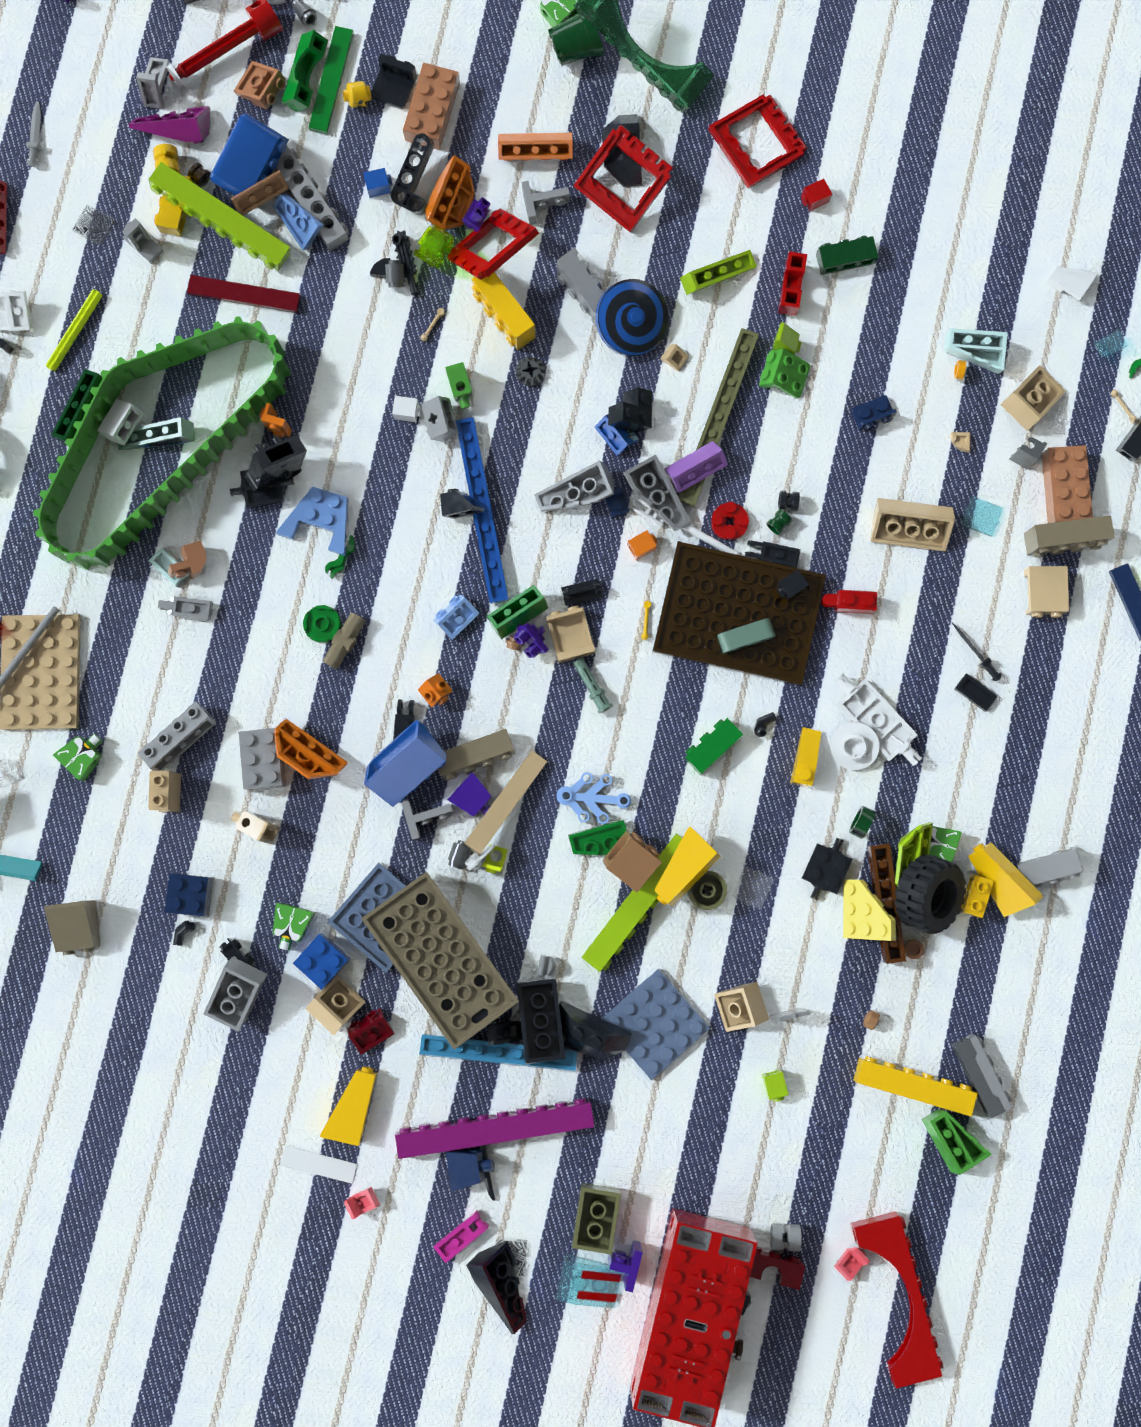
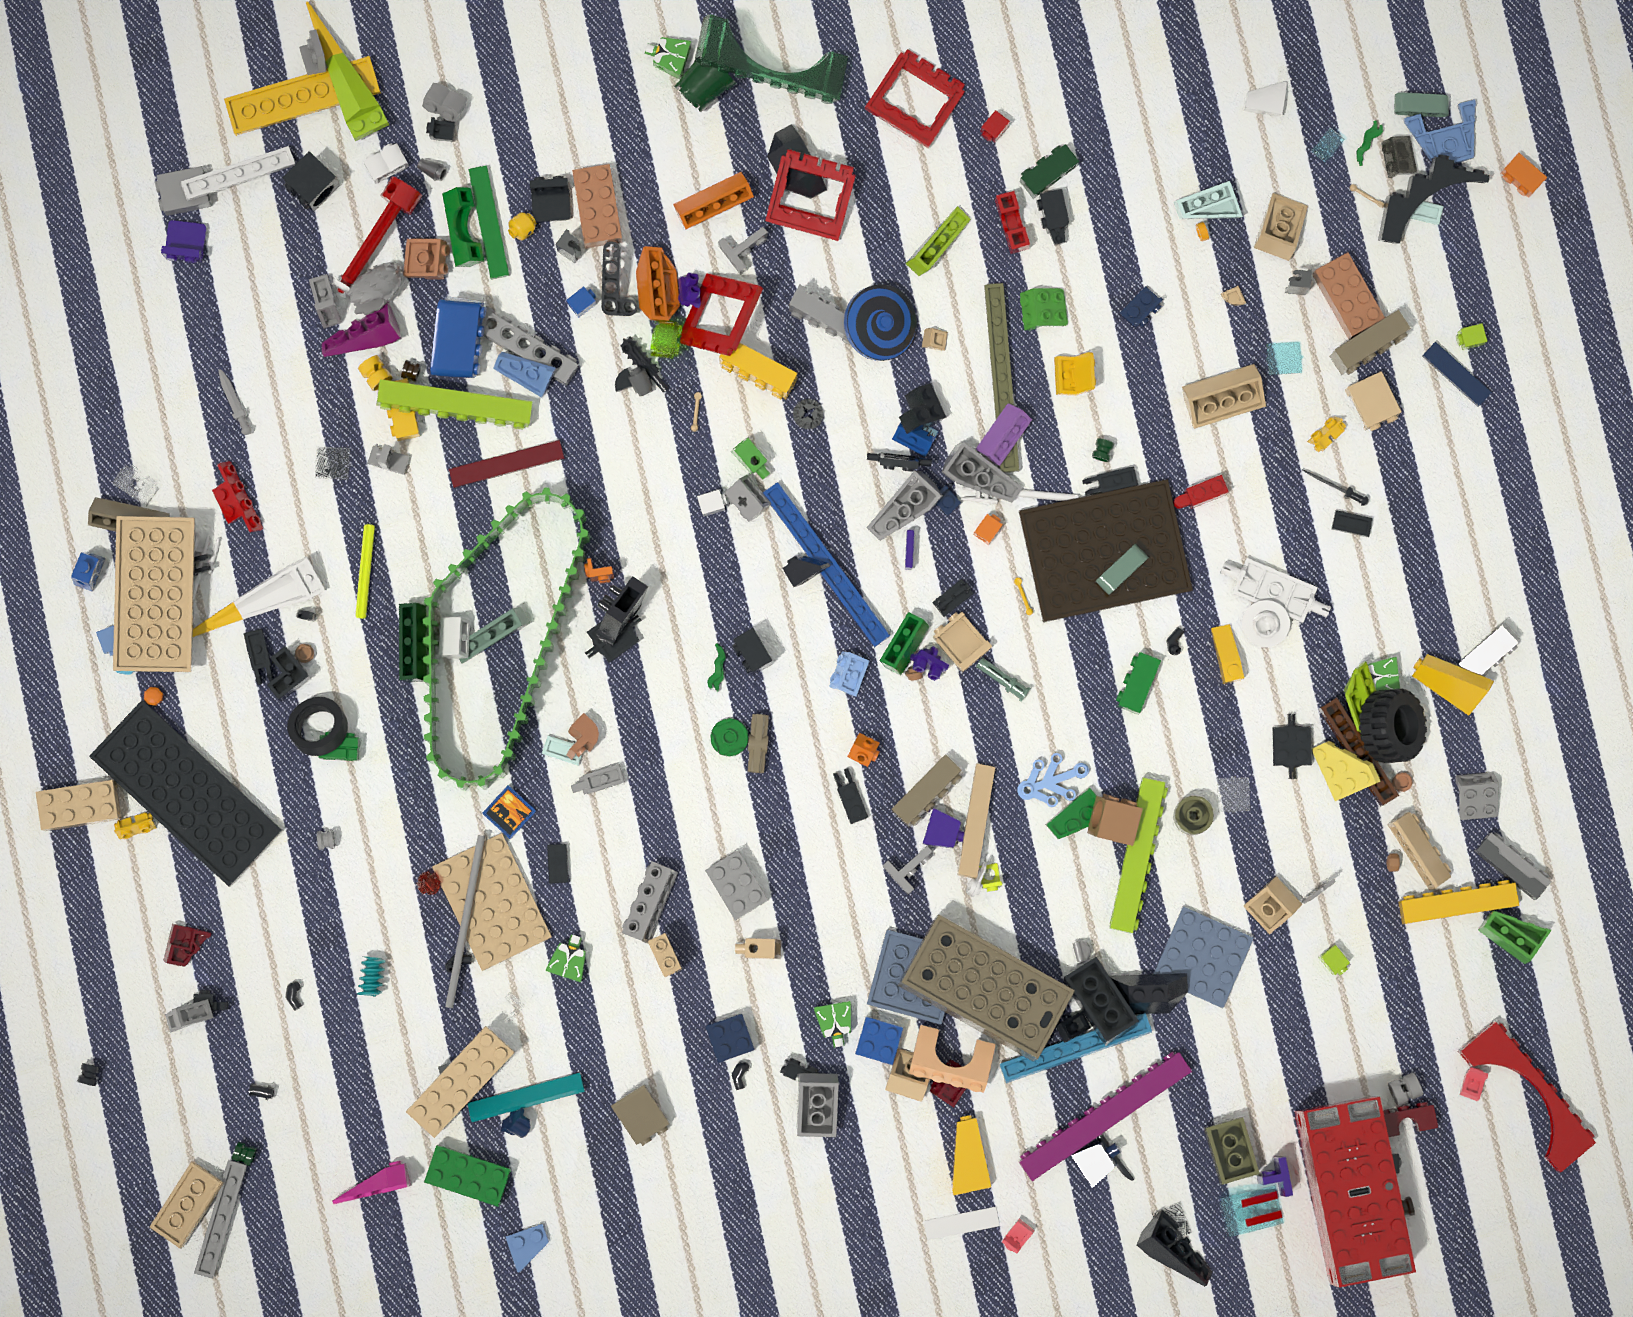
camera: 30 degrees left, 0 degrees up
(94, 599) = (509, 812): none -> tile
(115, 665) = (557, 863): none -> black tile
(201, 87) = (375, 288): none -> light grey head
(260, 193) = (481, 364): medium nougat tile -> none
(305, 752) = (775, 861): orange wedge -> none
(323, 511) = (679, 633): medium blue wing -> none
(376, 555) = (752, 651): none -> black brick
(387, 126) = (566, 246): none -> dark grey hinge
(387, 1035) = (927, 1065): none -> light nougat arch
(404, 764) = (869, 829): windscreen -> none
(458, 854) = (956, 888): dark grey brick -> none
(460, 1237) = (1119, 1225): dark pink plate -> none
(562, 531) = (909, 549): none -> dark purple tile
(584, 444) = (892, 460): none -> black plate
(686, 867) = (1167, 800): yellow slope -> none
(740, 521) = (1051, 460): red plate -> none
(785, 443) = (1074, 374): none -> yellow bracket
(787, 339) = (1032, 278): lime slope -> none
(788, 500) = (1102, 426): black wheel -> none
(791, 585) = (1142, 504): black brick -> none
(833, 295) = (1054, 214): none -> black hinge
(862, 822) = (1303, 689): dark green piece -> none
(901, 1021) = (1419, 850): none -> tan slope
(976, 896) = (1435, 708): yellow bracket -> none
(979, 994) = (1478, 795): none -> light grey bracket
(997, 597) = (1320, 438): none -> yellow hinge

